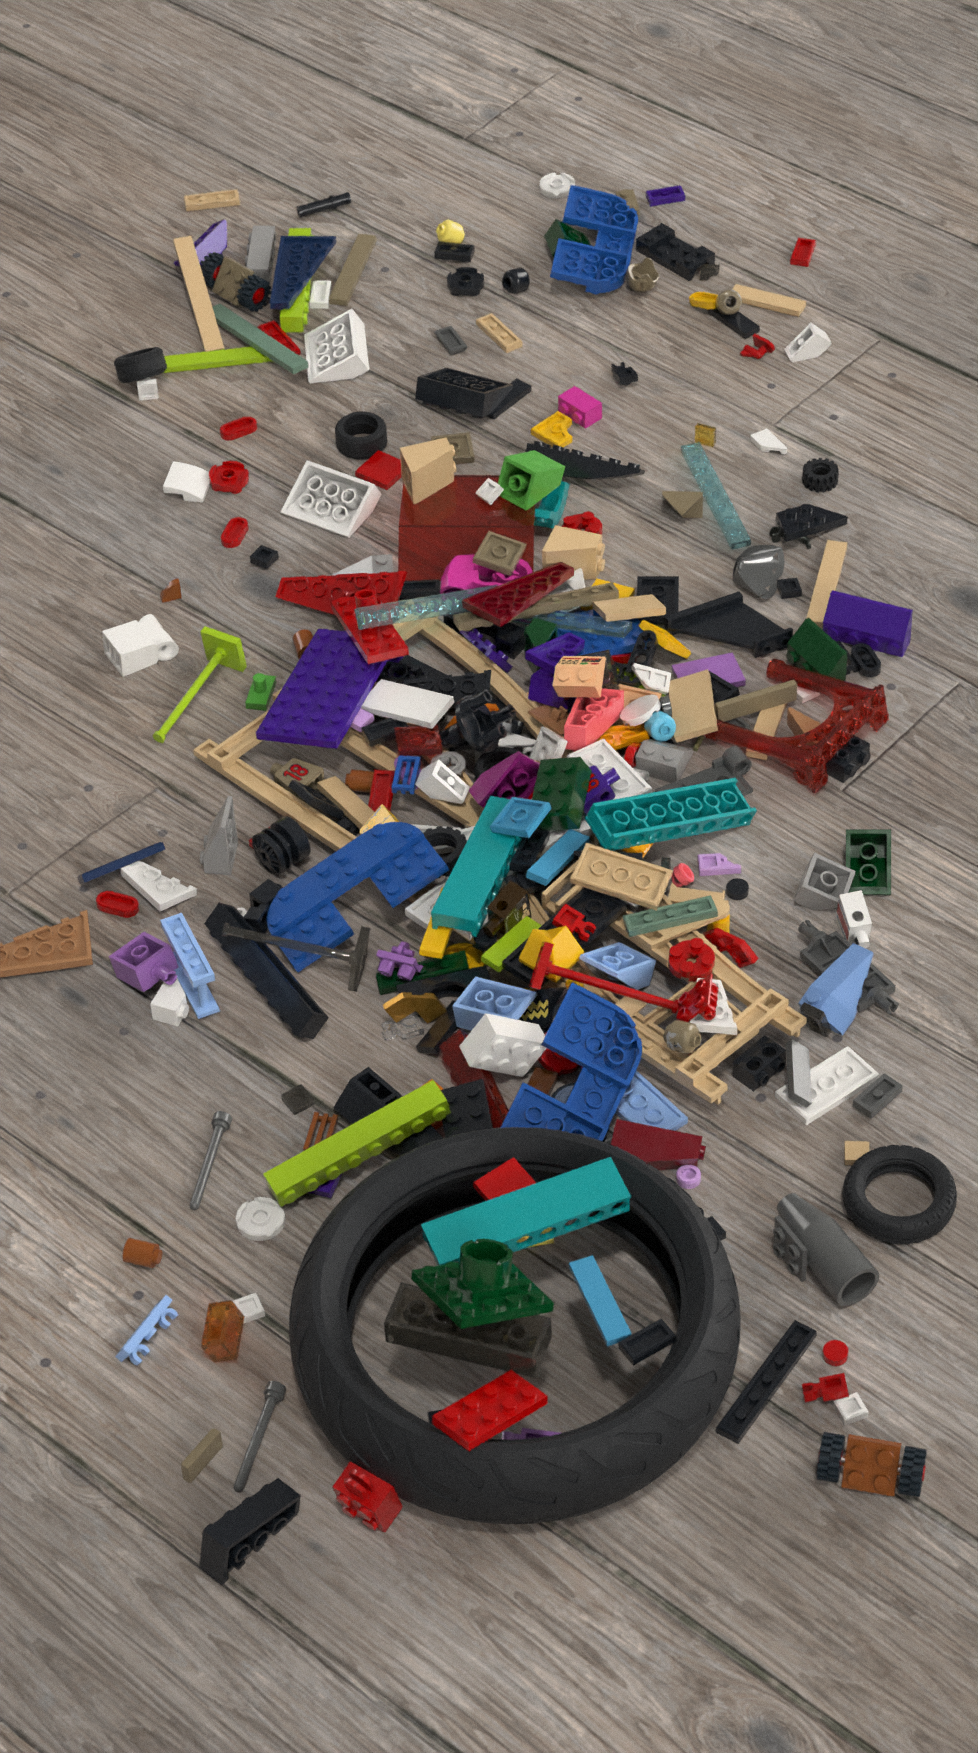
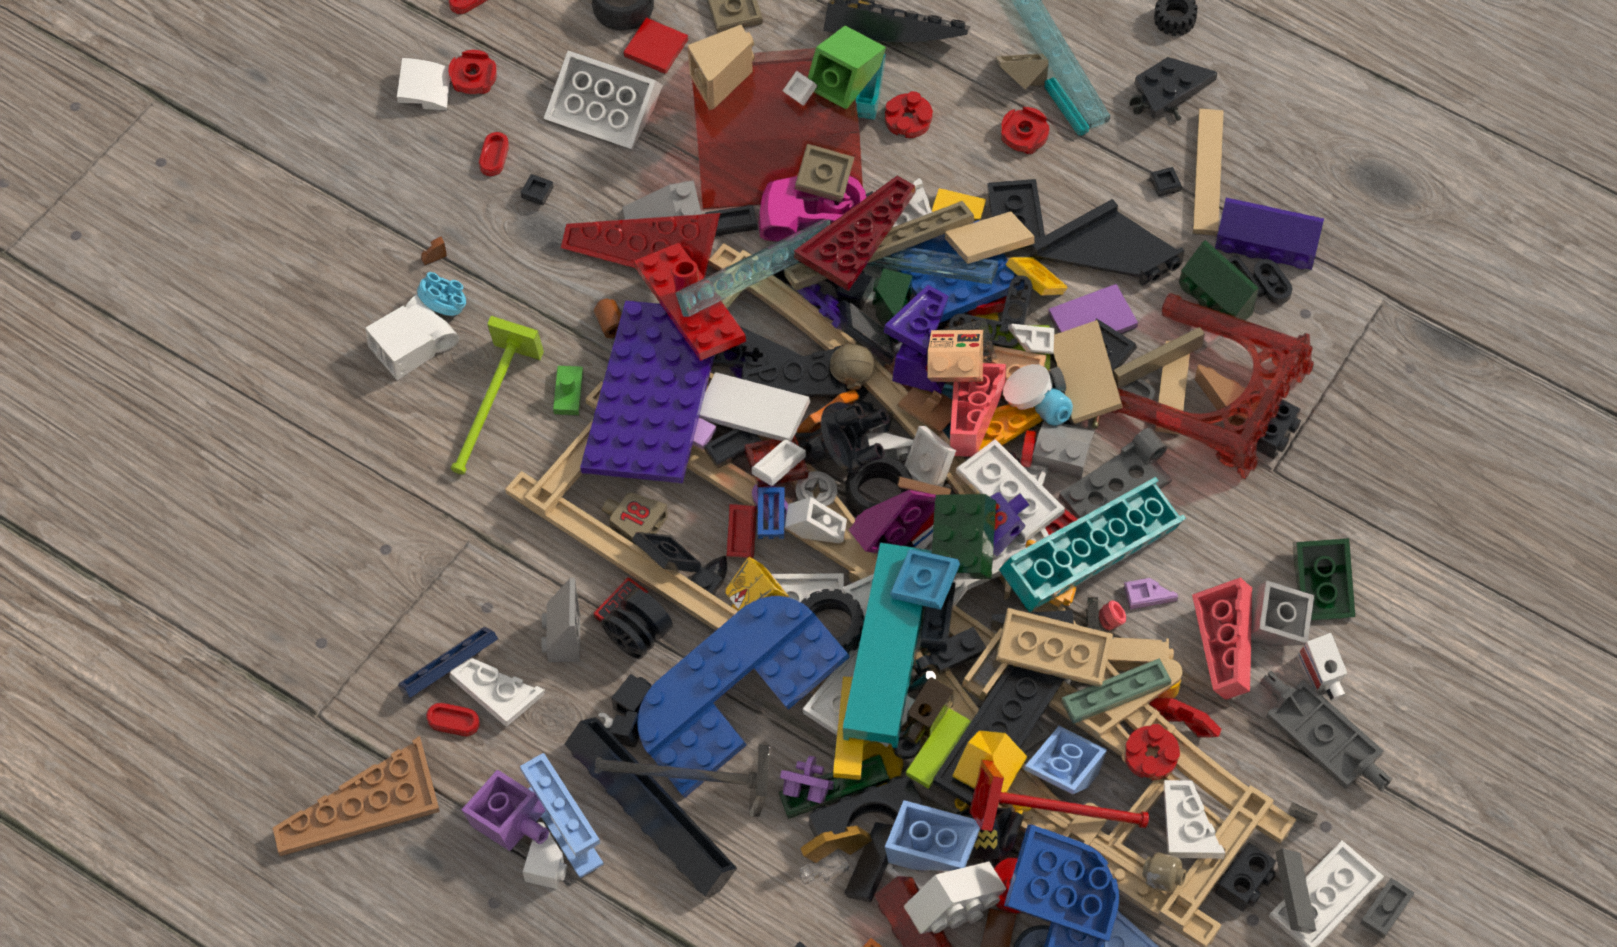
camera: 10 degrees left, 15 degrees up
(170, 618) = (441, 294): none -> medium azure tile
(346, 800) = (701, 546): tan tile -> none
(359, 780) = (712, 513): dark orange brick -> none
(418, 737) = (778, 462): none -> white tile
(497, 681) = (852, 365): none -> dark tan cap
(512, 662) = (866, 331): none -> piece
(557, 857) = (973, 623): dark azure tile -> none
(574, 922) = (1006, 717): red plate -> none
(575, 549) = (910, 158): tan slope -> none
(668, 544) = (1025, 141): none -> red plate
(699, 1000) = (1172, 821): red hinge -> none
(715, 532) = (1066, 106): none -> teal axle
(737, 889) = (1178, 626): black tile -> none
(756, 568) = (1122, 164): dark grey piece -> none
(775, 892) = (1225, 630): none -> coral wedge
(840, 988) = (1323, 767): medium blue wedge -> none

